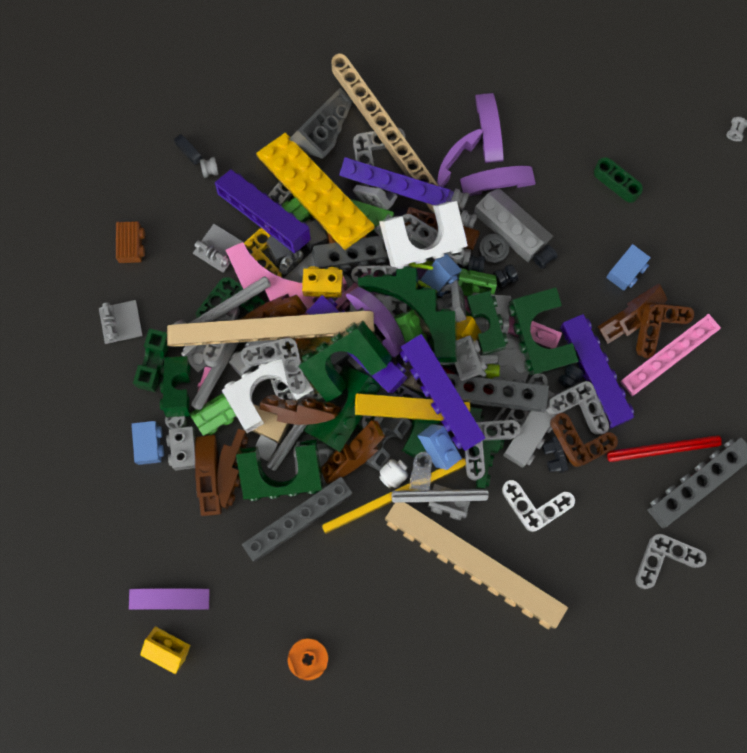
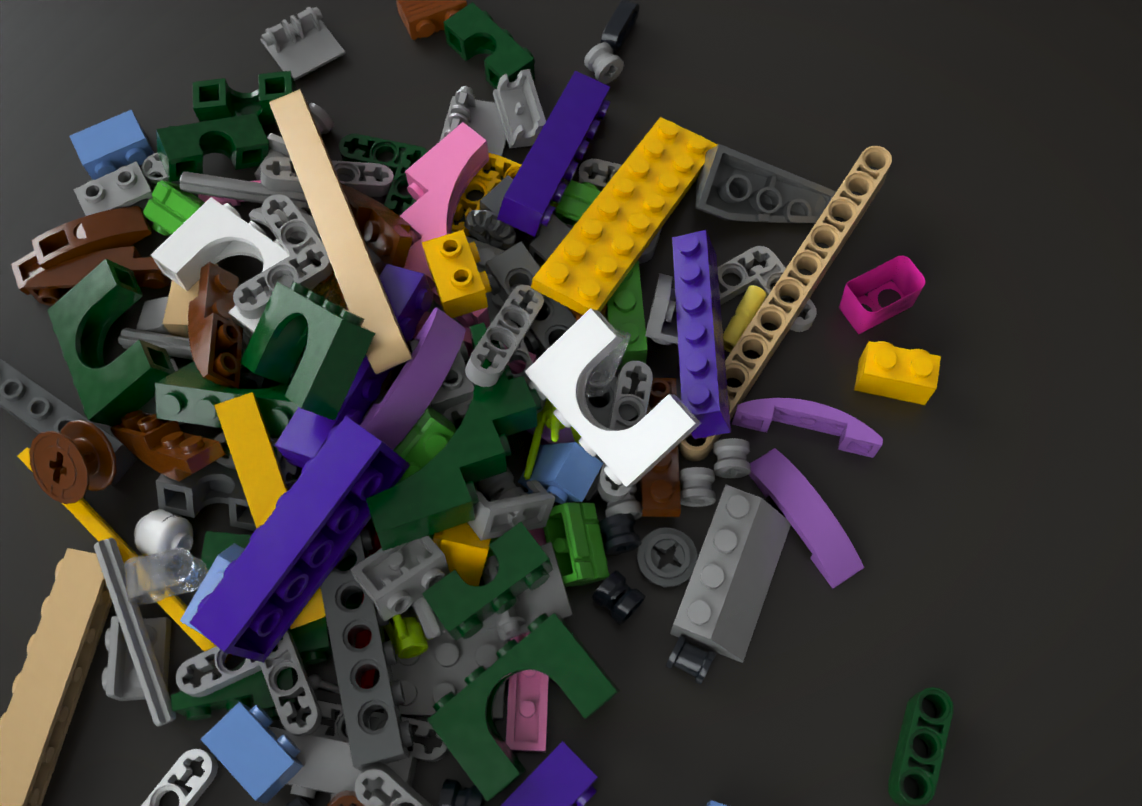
camera: 70 degrees right, 10 degrees down
(157, 223) = (475, 33): none -> dark green arch
(222, 220) = (519, 109): none -> light grey hinge
(234, 301) = (377, 166): light grey axle -> none
(354, 505) = (72, 461): none -> reddish brown piece
(373, 266) = (504, 333): none -> light grey beam
(386, 161) = (743, 316): none -> light yellow piece
(408, 80) = (907, 282): none -> dark pink piece
(447, 107) = (897, 372): none -> yellow brick
(491, 128) = (899, 461): medium lavender slope -> none
(521, 452) = (253, 751): none -> medium blue brick

